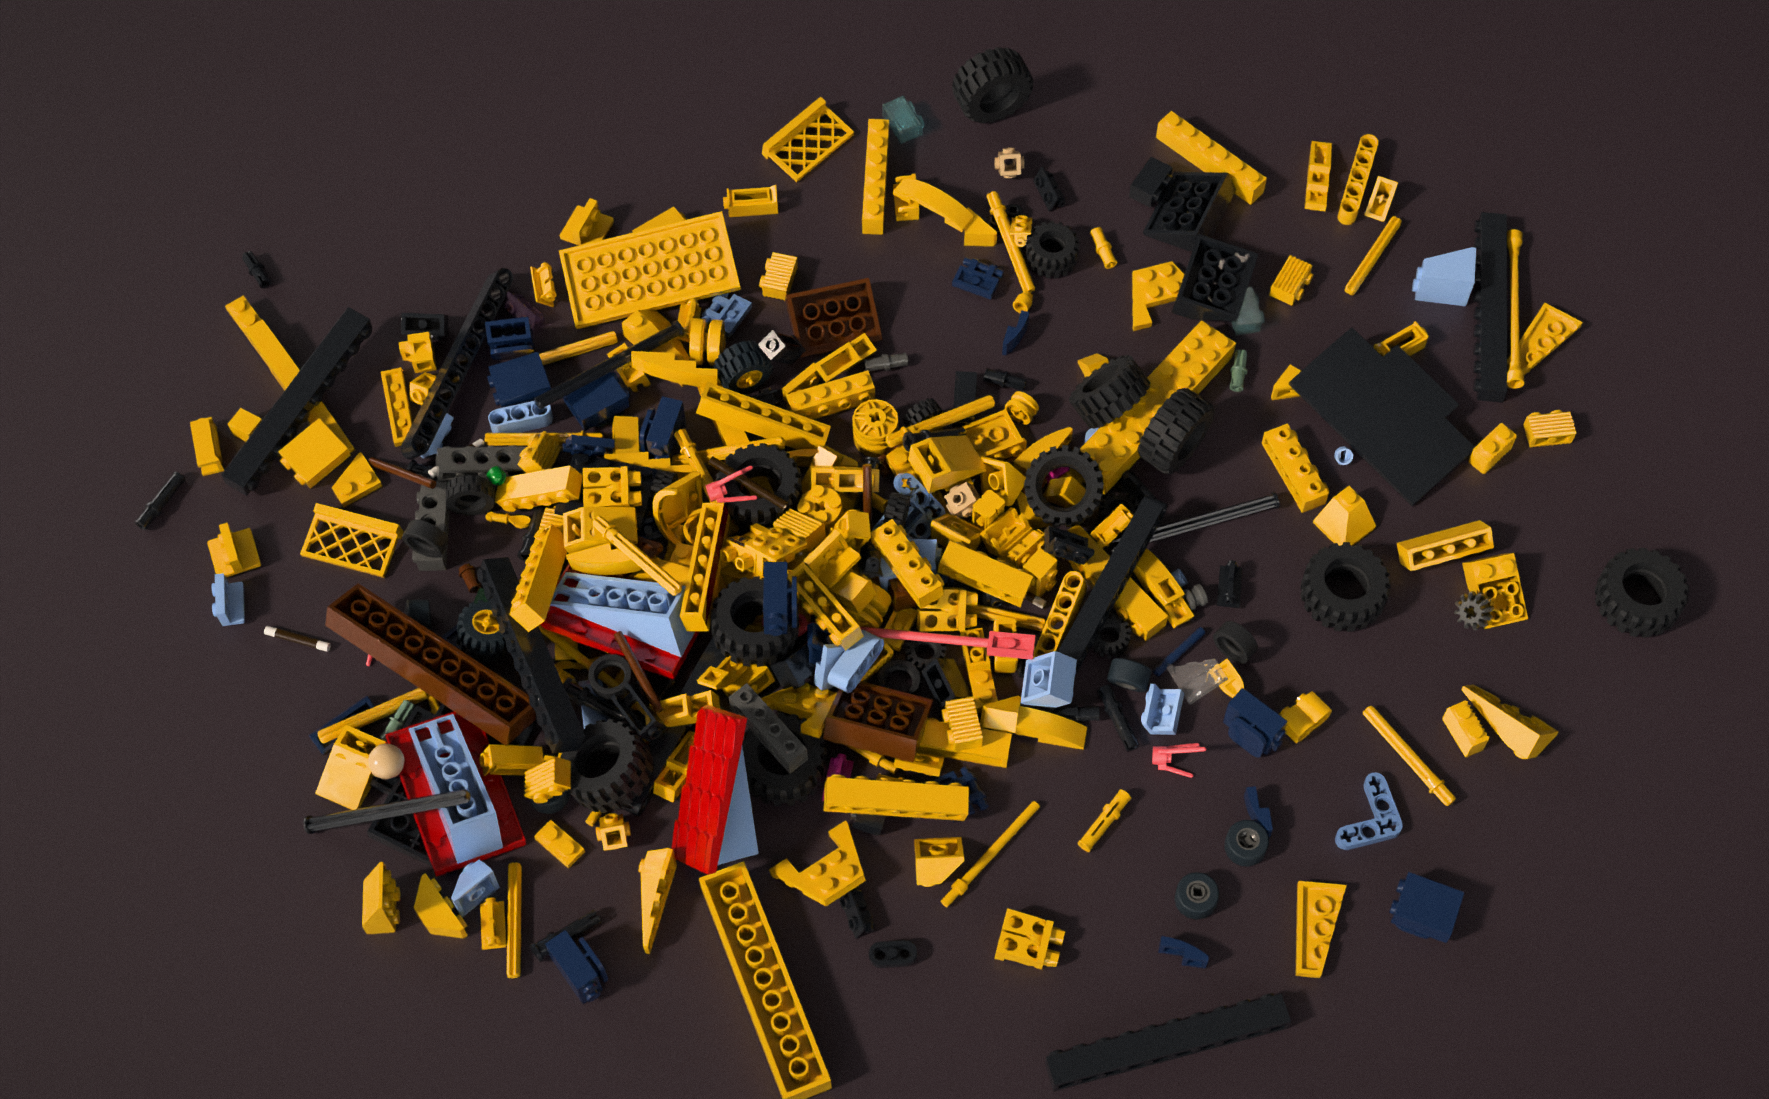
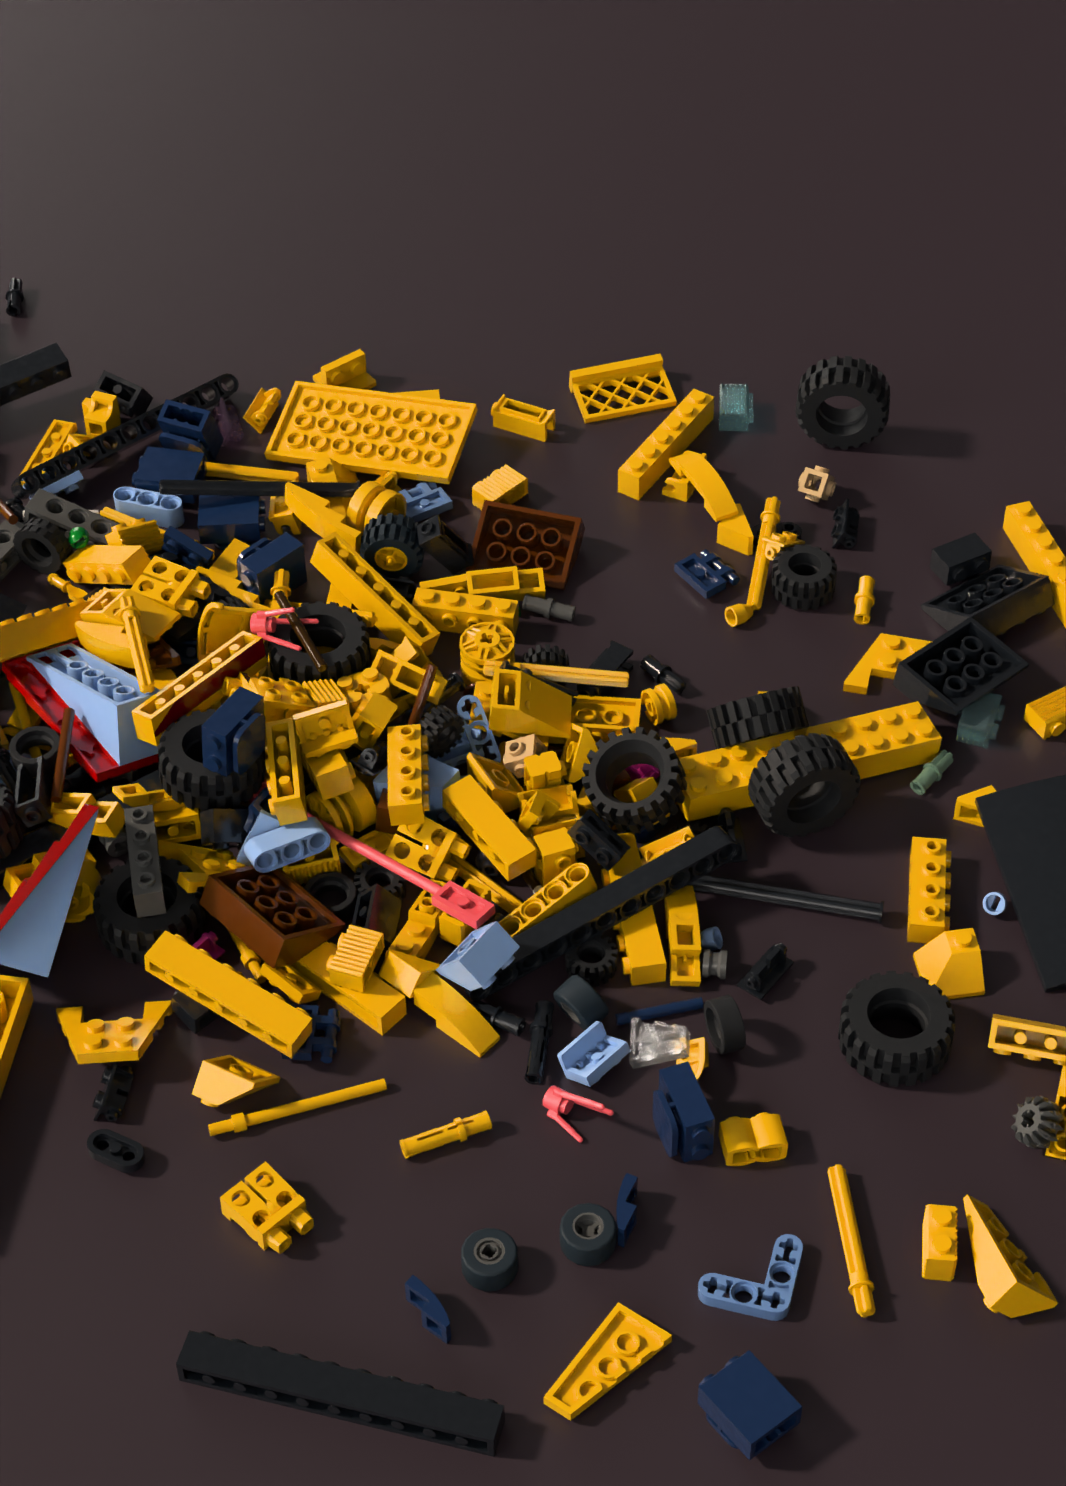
camera: 30 degrees right, 15 degrees down
(1008, 544) = (537, 808): none -> yellow bracket
(1015, 334) = (702, 639): dark blue slope -> none

